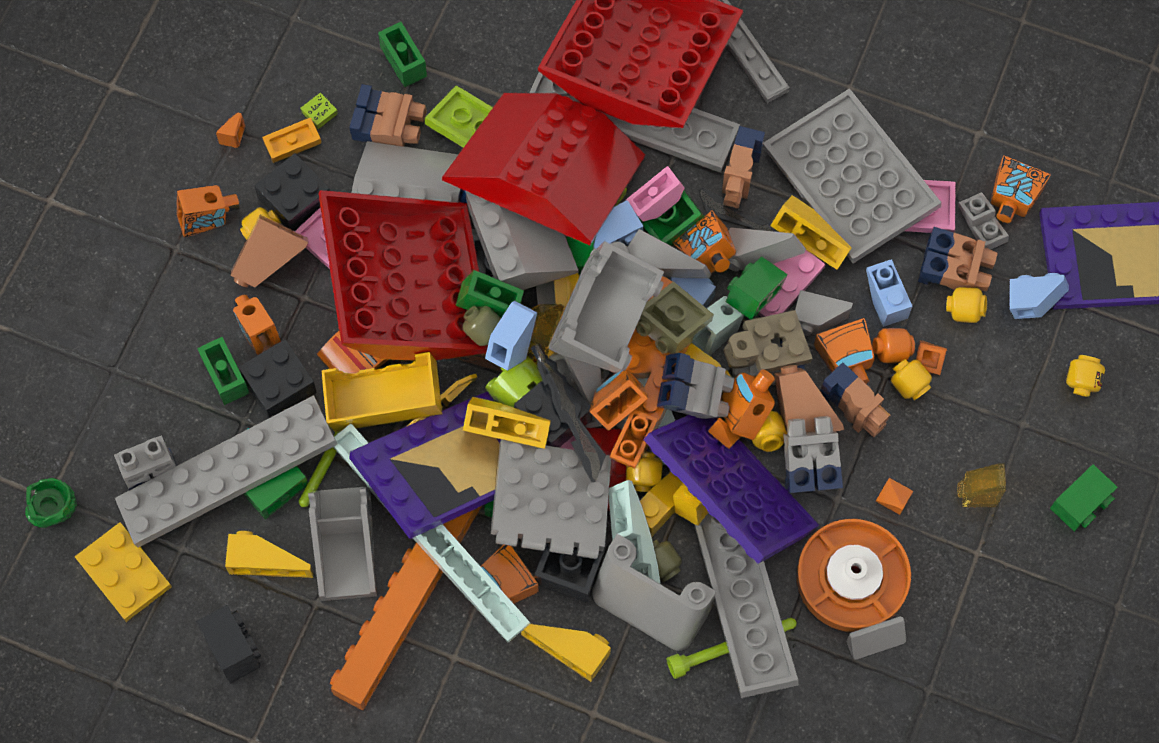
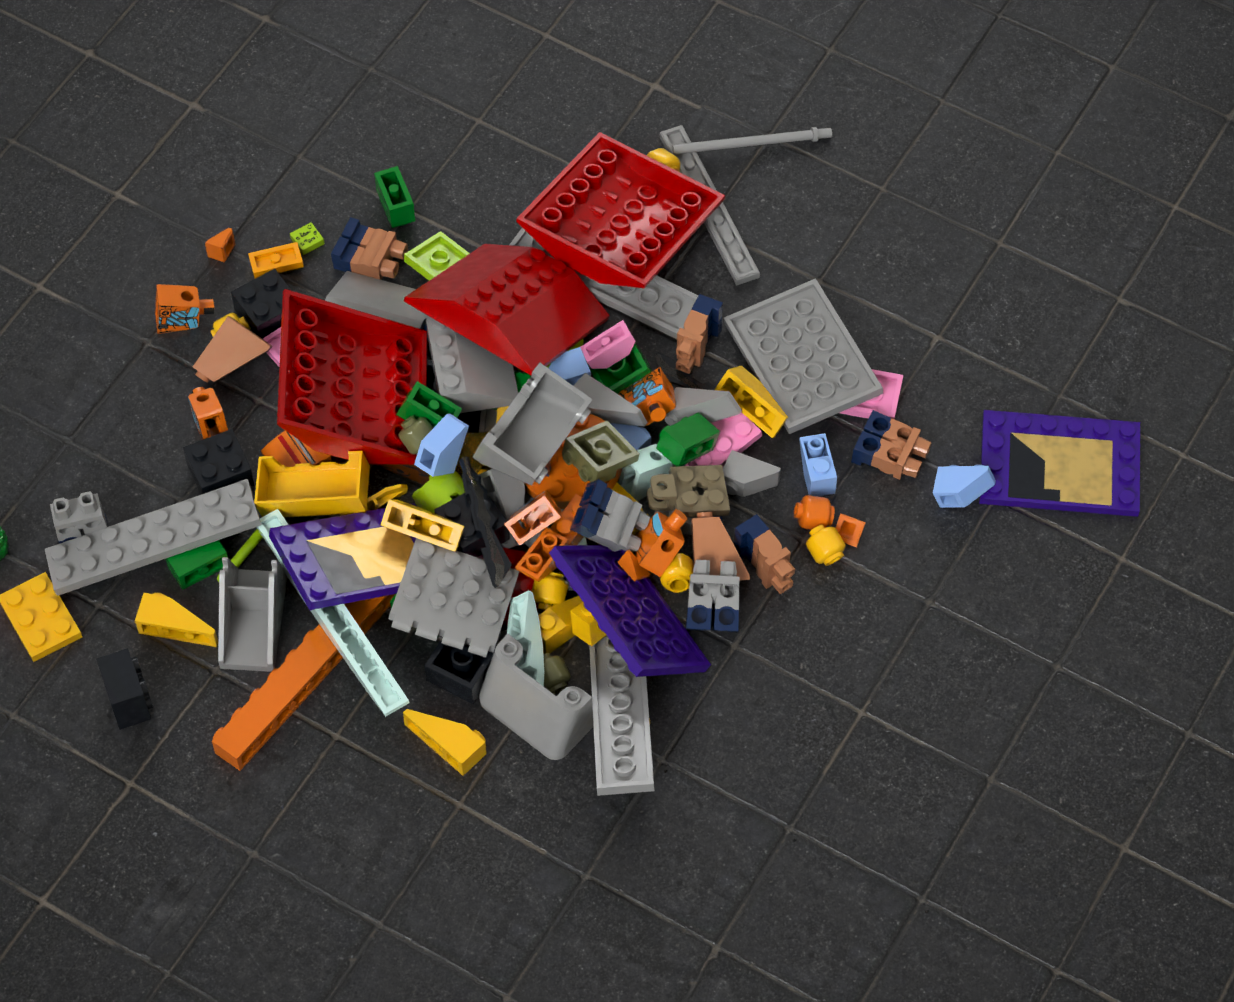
camera: 10 degrees right, 10 degrees down
(223, 370) = (168, 450): green brick -> none
(510, 574) = (404, 666): orange torso -> none
(681, 664) = (551, 770): lime piece -> none
(847, 345) = (771, 505): orange torso -> none
(858, 598) = (734, 712): orange piece -> none
(877, 638) = (746, 772): light grey slope -> none
(894, 496) = (790, 649): orange slope -> none
(967, 304) = (893, 486): yellow head -> none
(982, 221) = (924, 415): light grey slope -> none
(983, 486) = (874, 649): clear yellow slope -> none
(1016, 188) = (963, 389): torso -> none
(1083, 498) = (974, 674): green brick -> none
(1085, 375) = (997, 564): yellow head -> none

